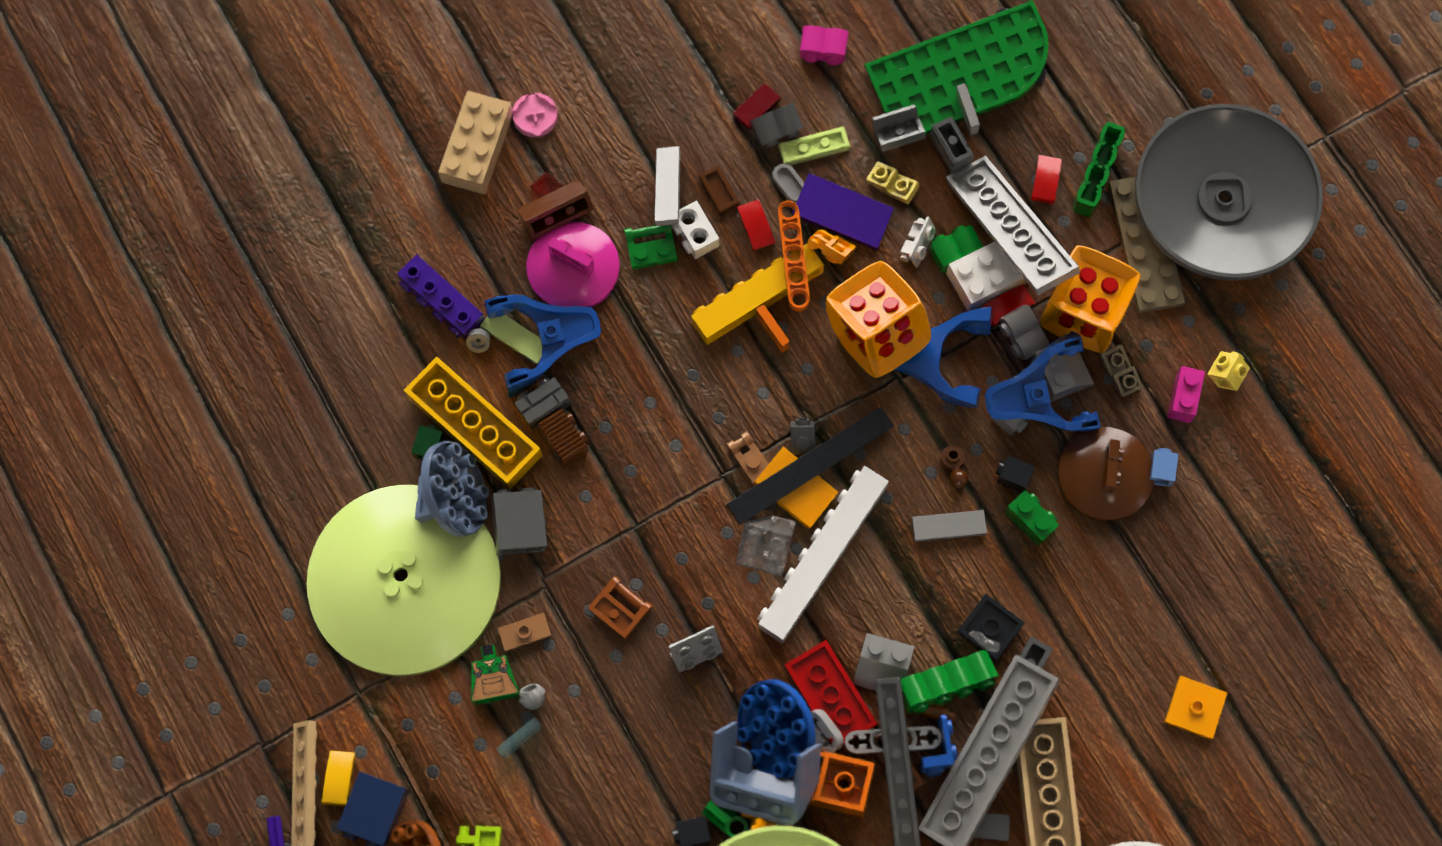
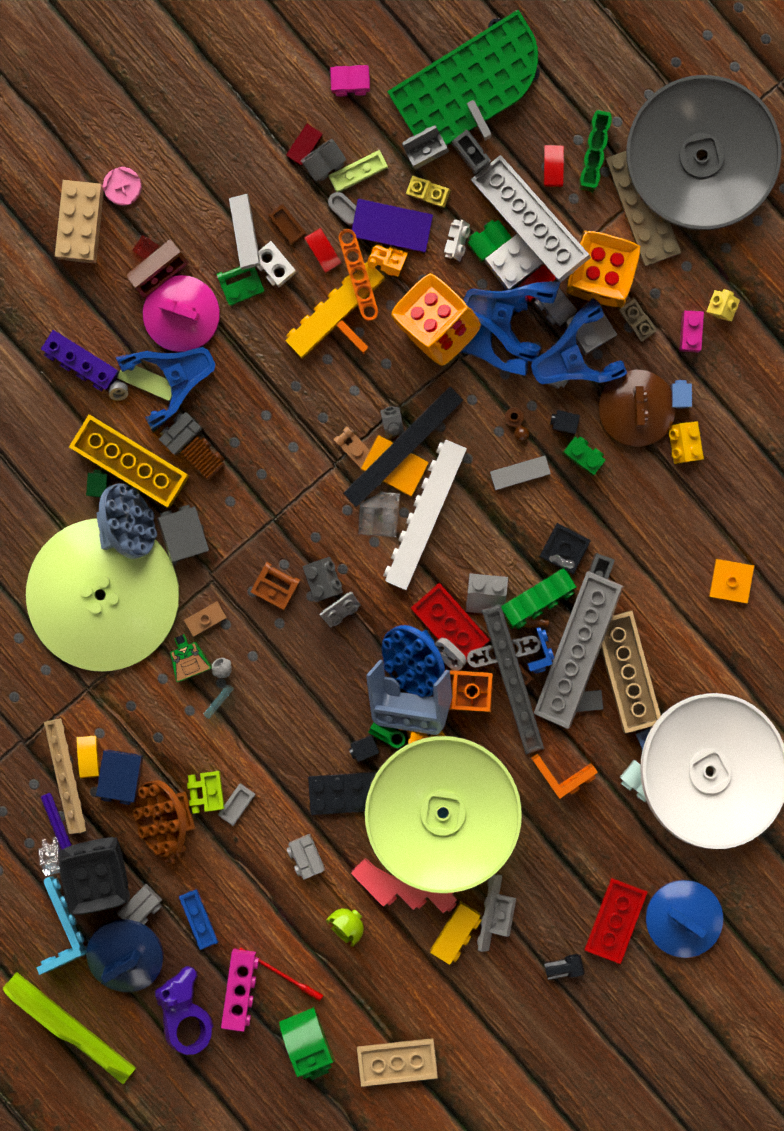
camera: 10 degrees left, 15 degrees up
(680, 609) = (322, 579): none -> dark grey bracket
(954, 321) = (496, 311): none -> blue animal
(1160, 525) = (685, 442): none -> yellow bracket

